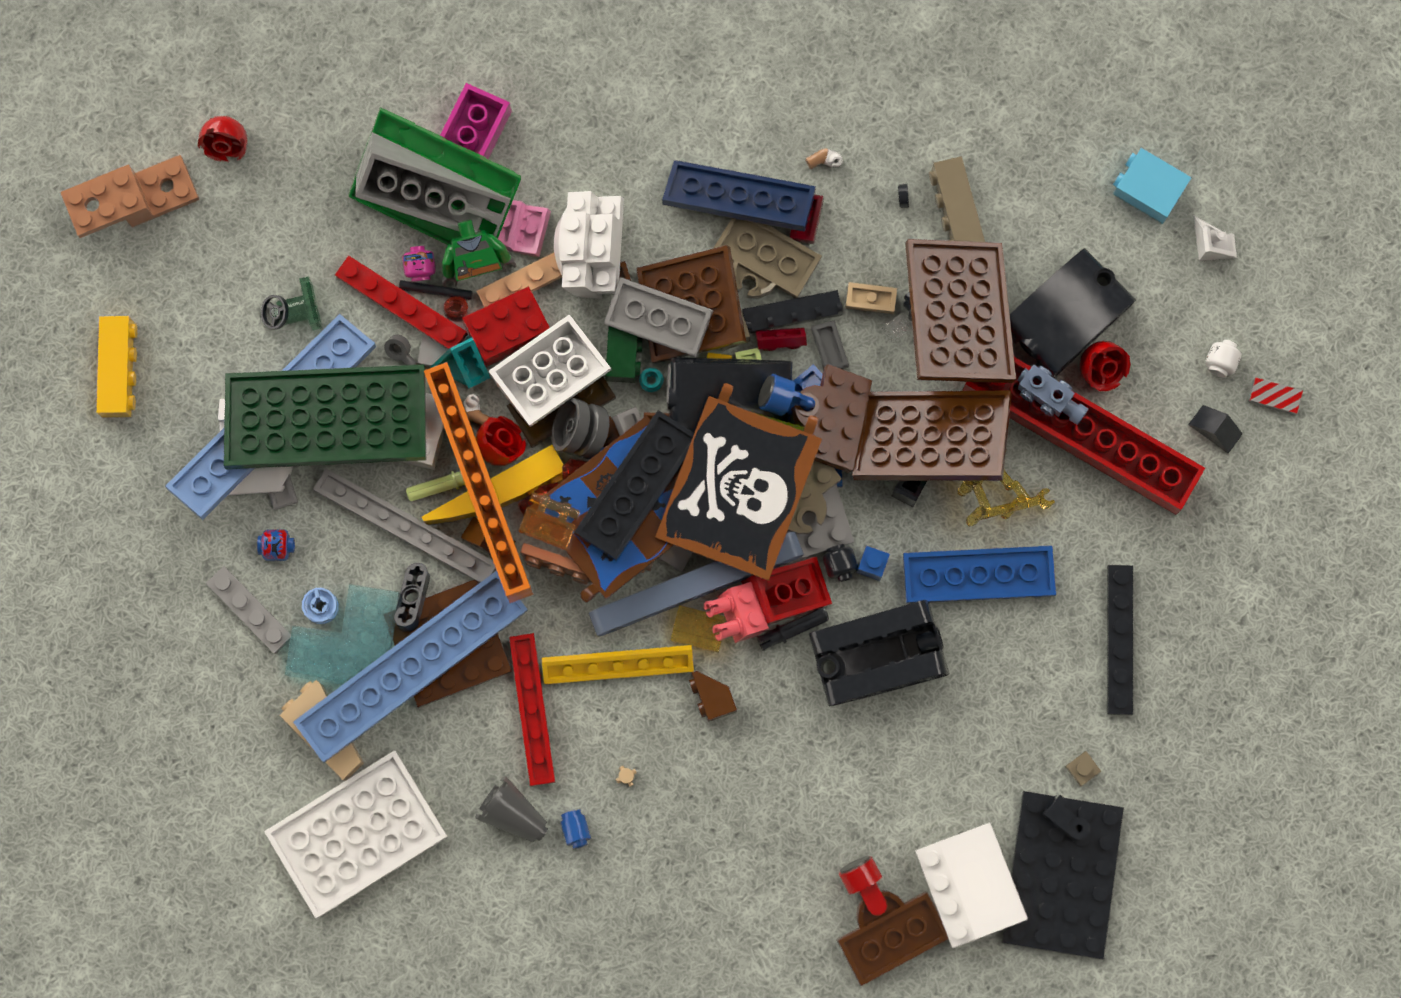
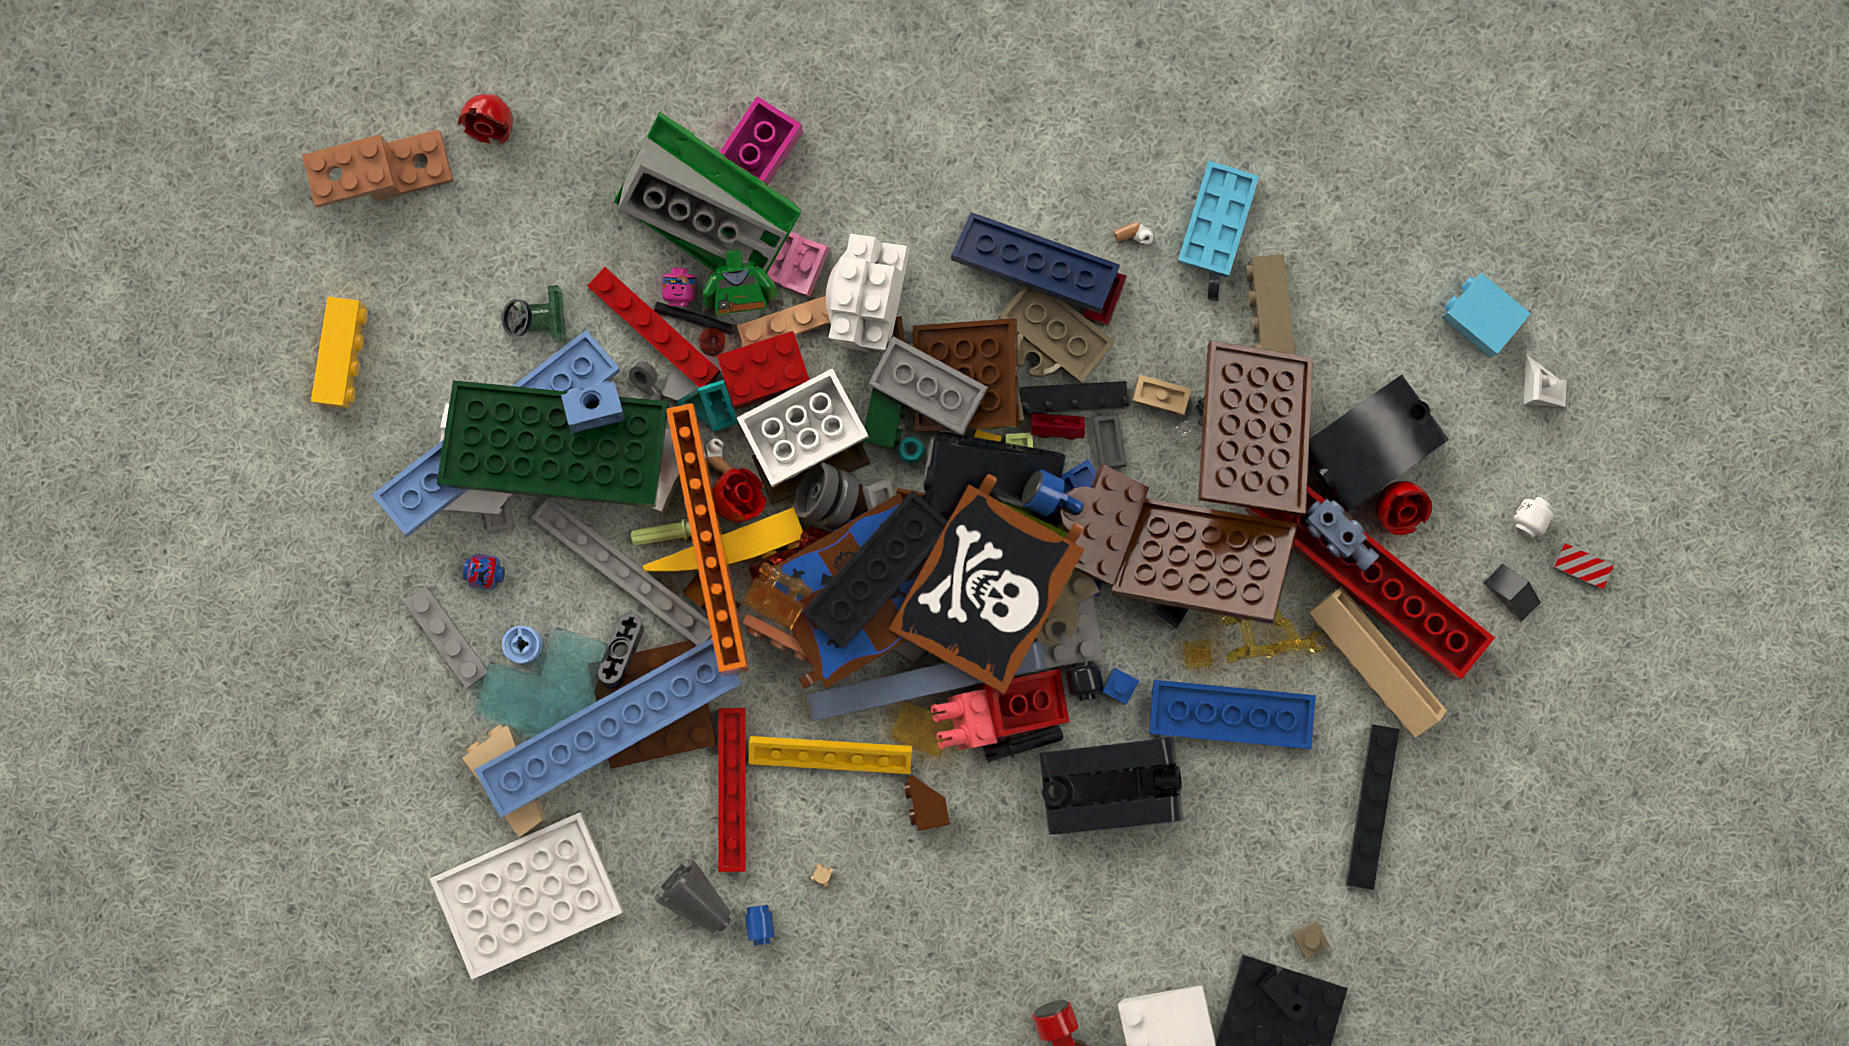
camera: 10 degrees right, 5 degrees up
(350, 389) = (606, 413): none -> medium blue brick
(898, 135) = (1218, 219): none -> medium azure plate
(939, 525) = (1197, 654): none -> clear yellow tile
(1103, 507) = (1378, 662): none -> tan brick

